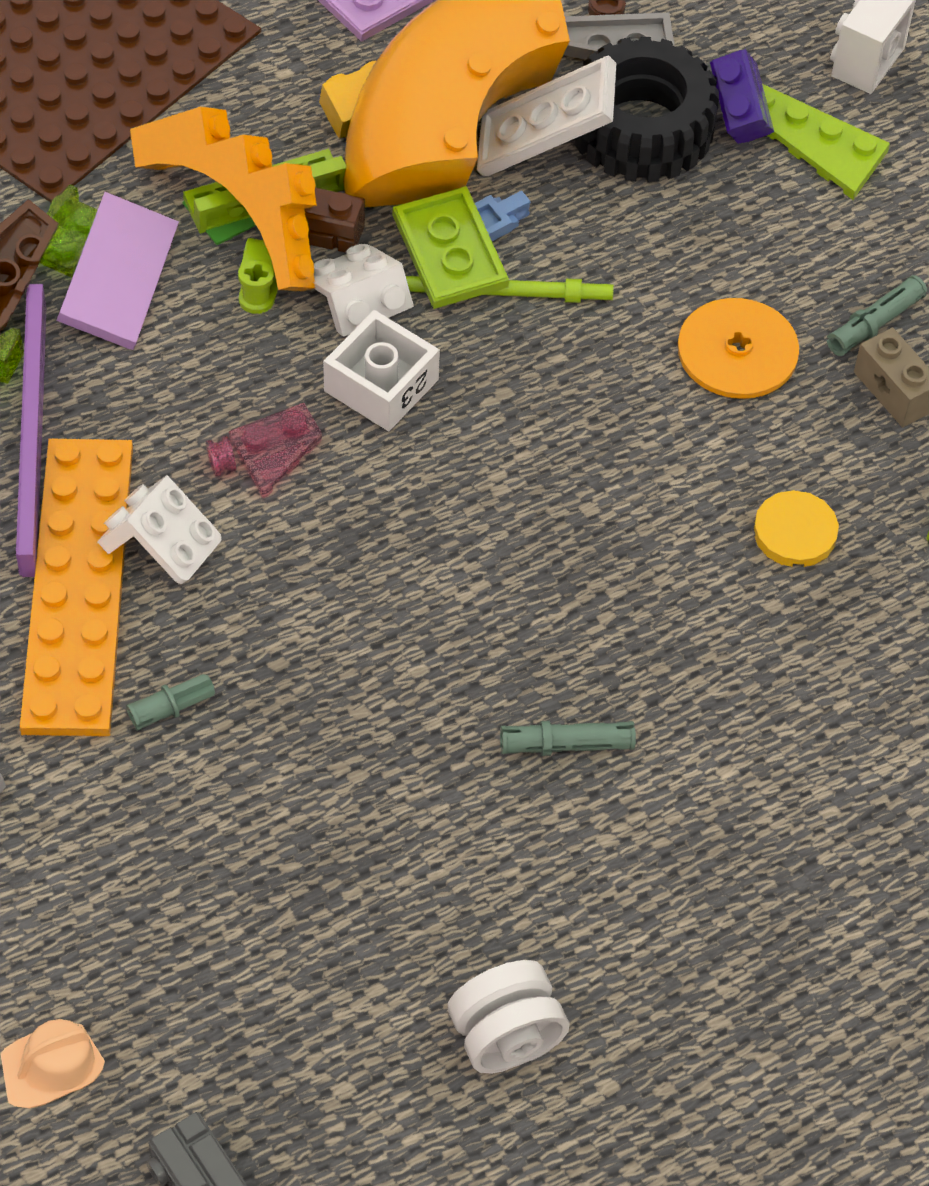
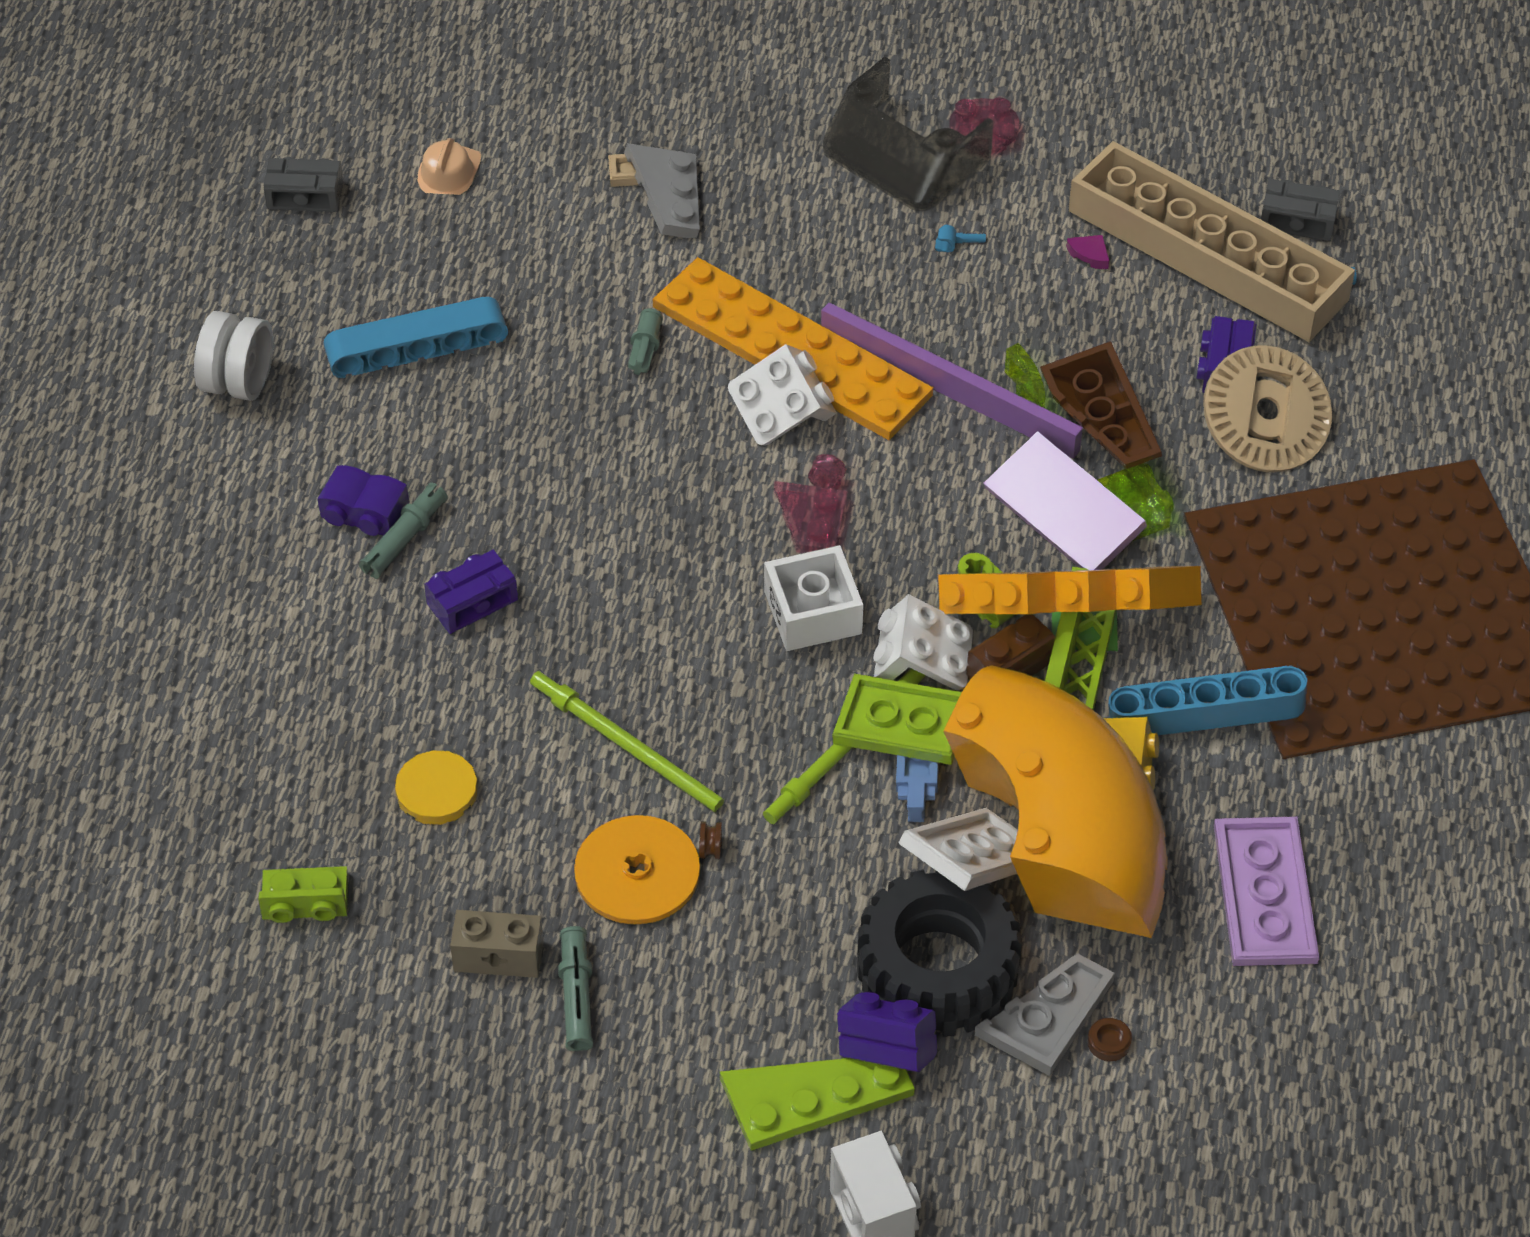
camera: 130 degrees right, 5 degrees down
(262, 75) = (1226, 696): none -> dark azure beam
(331, 897) = (414, 336): none -> dark azure beam
(567, 790) = (362, 500): none -> dark purple brick
(589, 631) = (470, 591): none -> dark purple brick
(628, 492) = (568, 700): none -> lime bar
(672, 310) = (710, 840): none -> reddish brown bush

